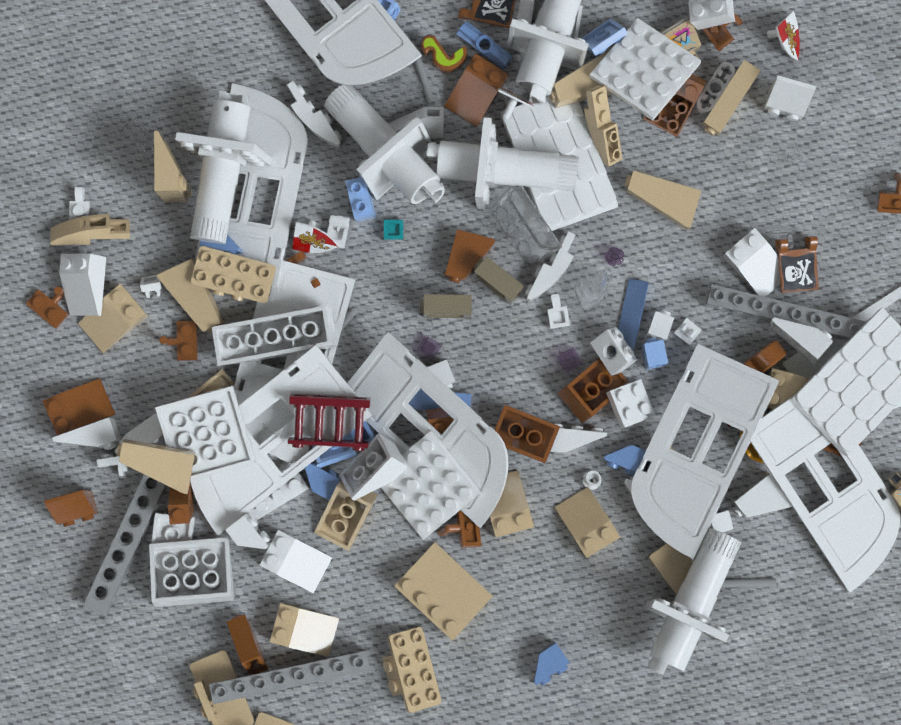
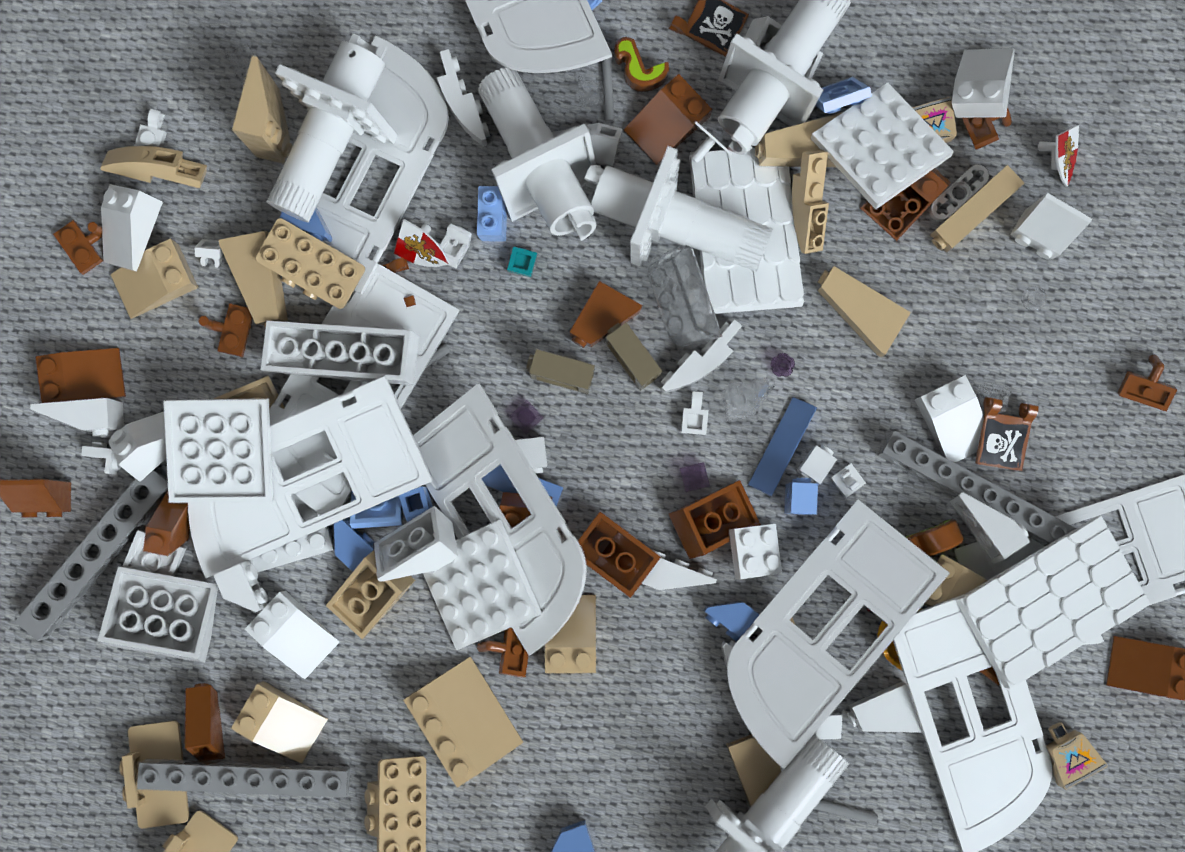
camera: 10 degrees right, 0 degrees up
(159, 462) = (150, 471): tan slope -> none
(320, 403) = (394, 457): dark red fence -> none
(494, 53) = (683, 56): medium blue piece -> none
(587, 522) = (663, 683): tan slope -> none
(595, 476) = (688, 629): white plate -> none
(604, 347) = (741, 473): white brick -> none

